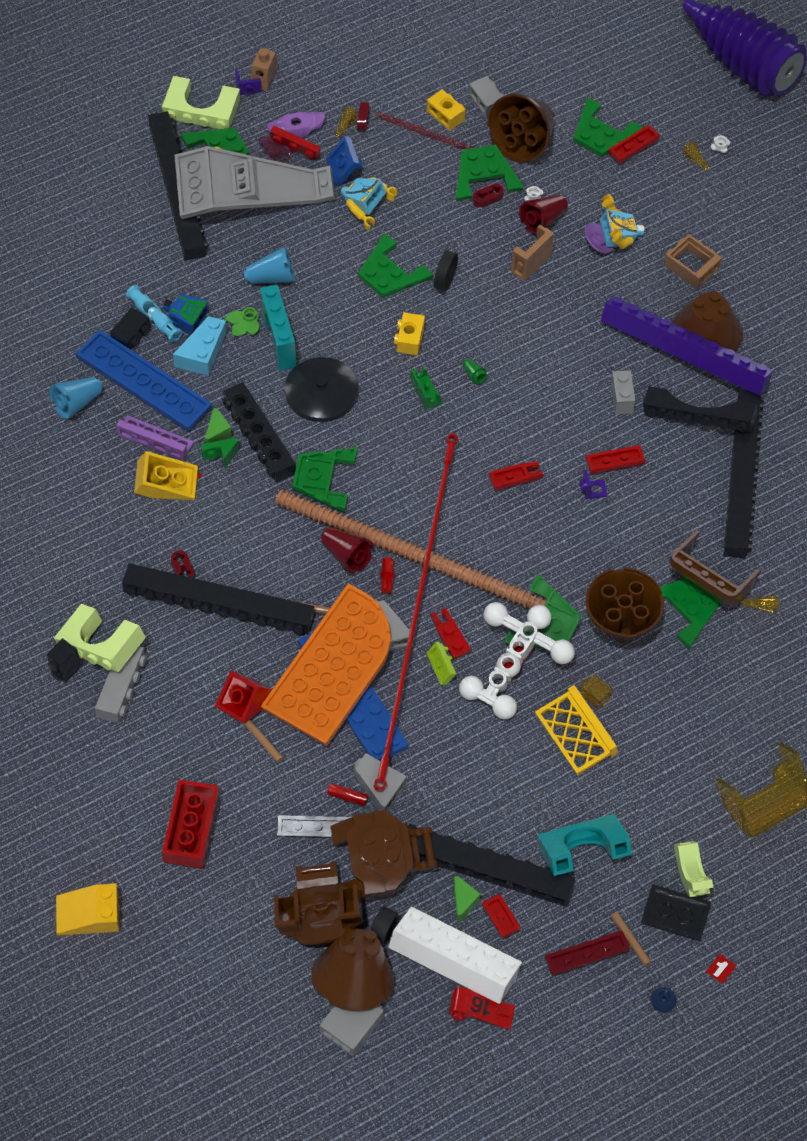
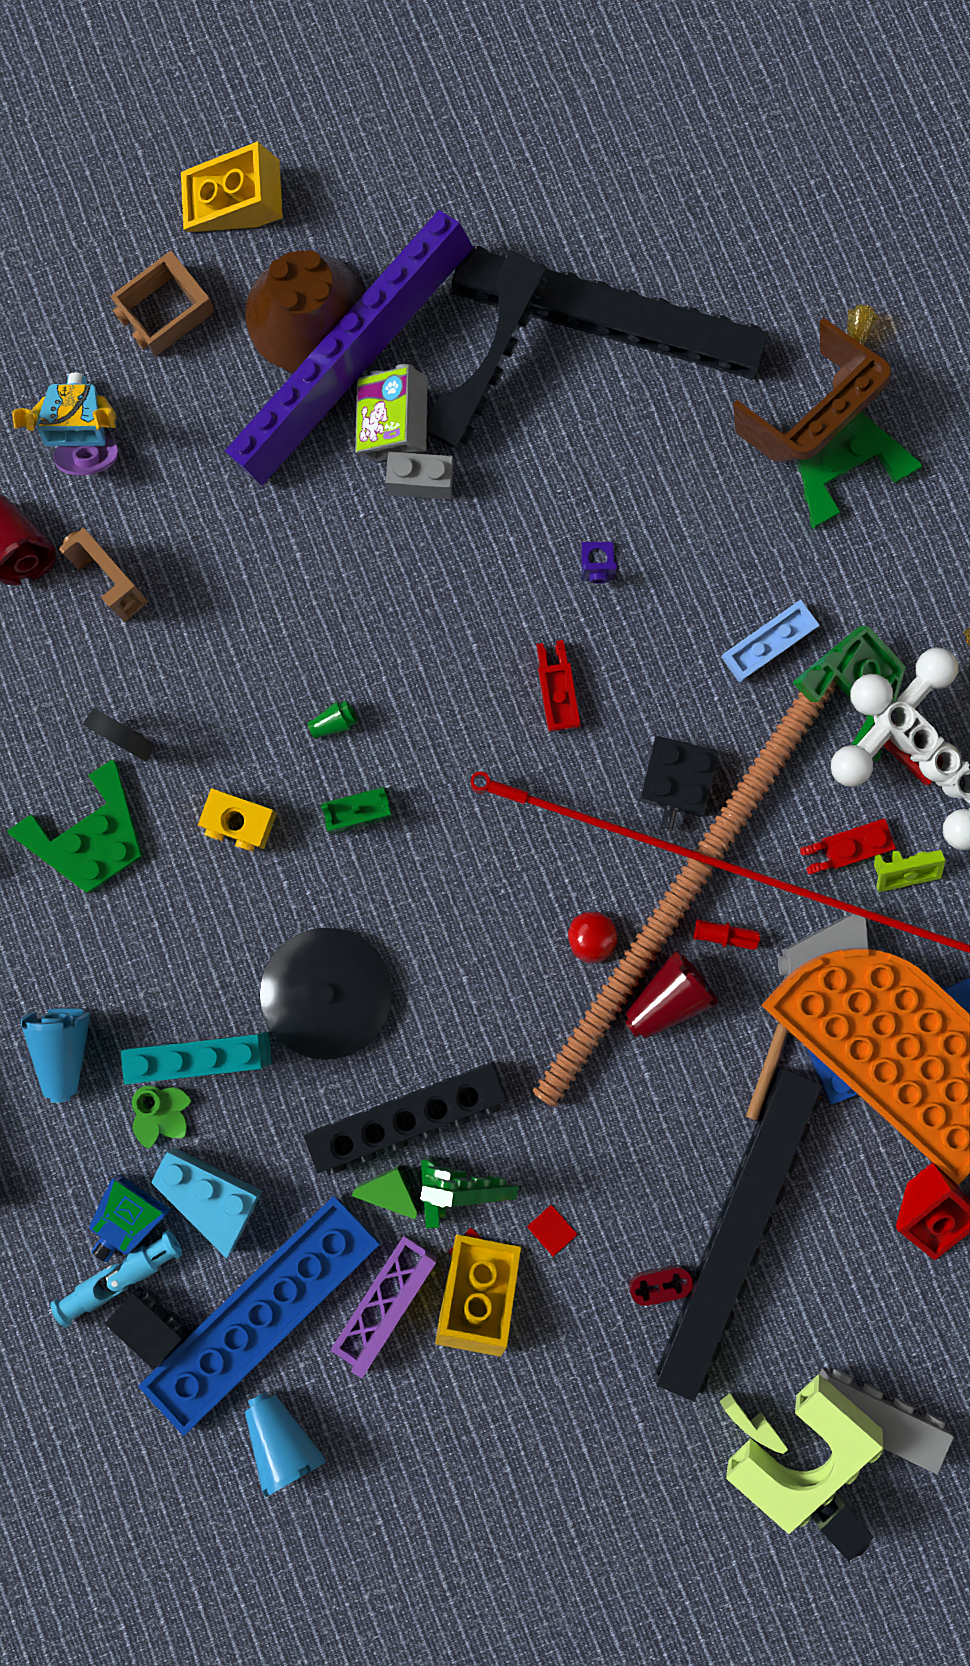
camera: 80 degrees left, 25 degrees up
(108, 622) = (757, 1428): none -> yellowish green slope
(205, 513) = (552, 1230): none -> red sticker
(226, 449) = (457, 1190): none -> green plate
(315, 474) = (506, 1029): green wing -> none
(374, 511) = (592, 937): none -> red hair
(473, 539) = (678, 778): none -> black plate
(564, 577) = (770, 641): none -> light blue plate
(615, 459) = (550, 515): red plate -> none
(624, 603) = (882, 546): reddish brown cone -> none
(654, 371) = (391, 412): none -> brick
(767, 285) = (232, 191): none -> yellow slope

